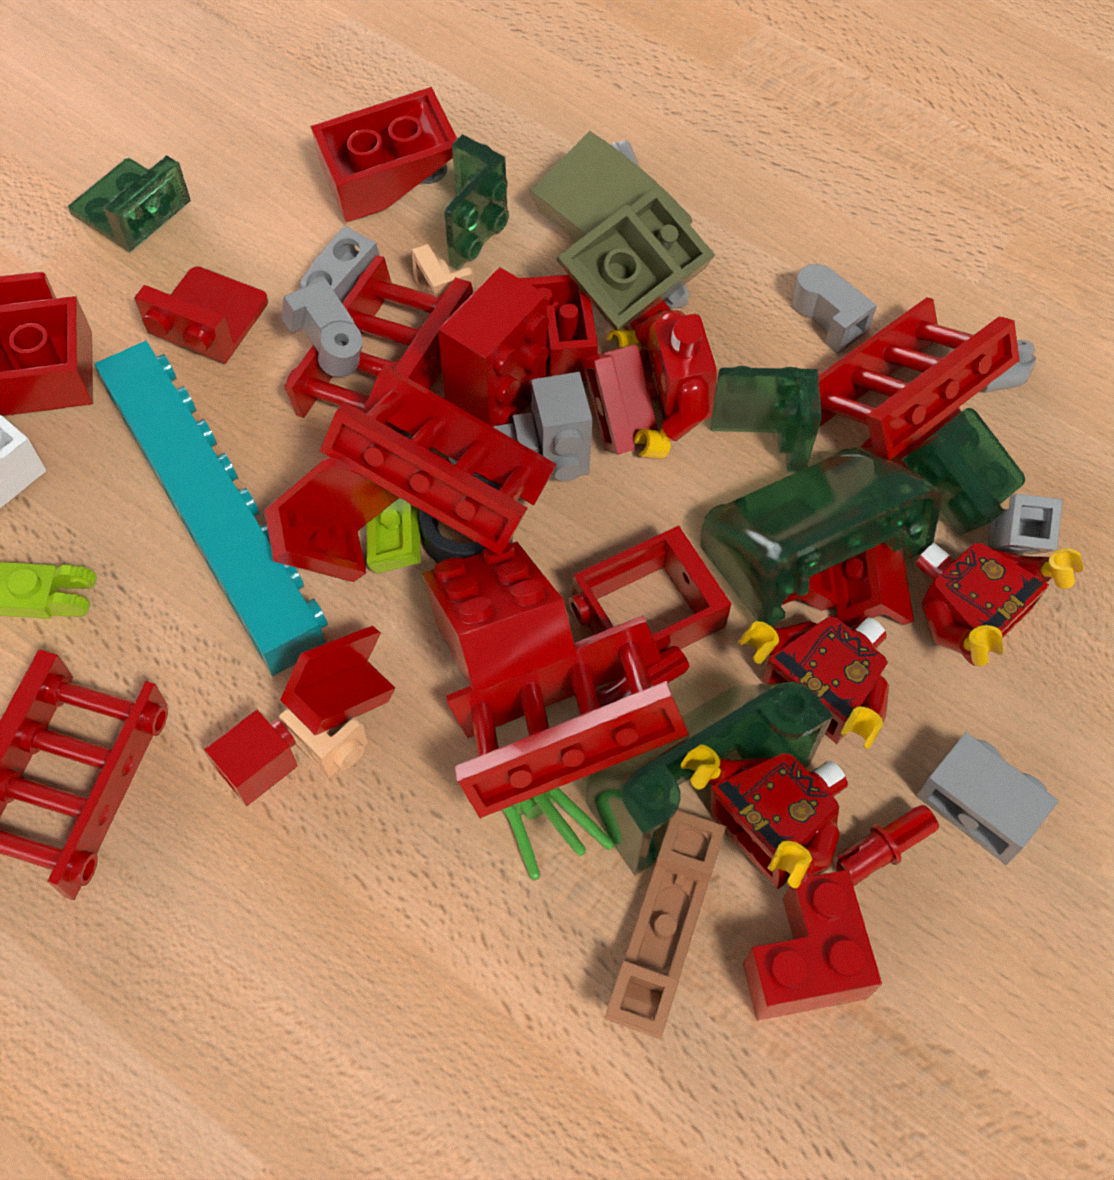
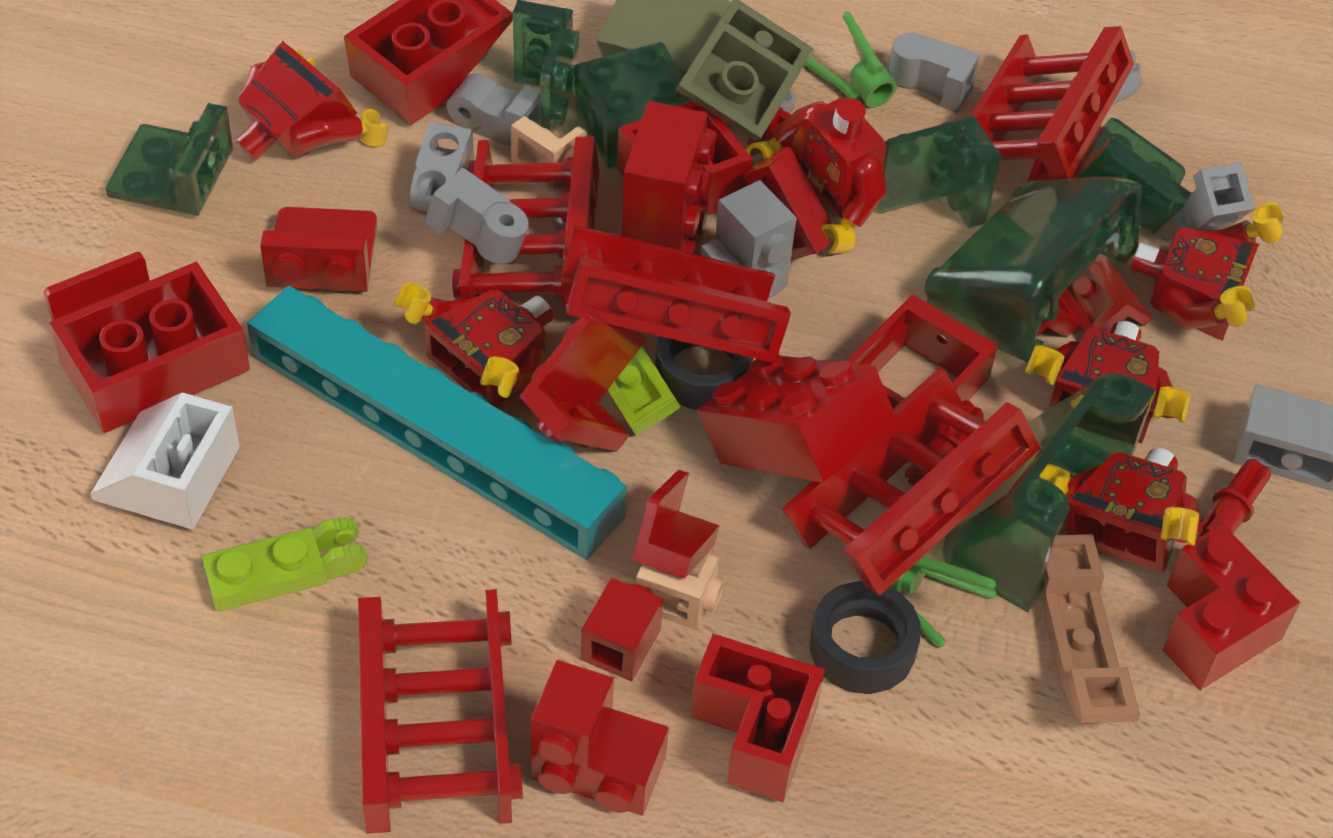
camera: 25 degrees left, 10 degrees down
(148, 851) = (592, 748): none -> red brick
(252, 181) = (300, 108): none -> red torso
(280, 435) = (482, 339): none -> red torso
(329, 894) = (763, 700): none -> red brick
(414, 224) = (491, 107): none -> light grey leg
(456, 889) = (860, 673): none -> black tyre
(532, 239) = (617, 90): none -> clear green bracket
(767, 299) = (869, 77): none -> bright green plant

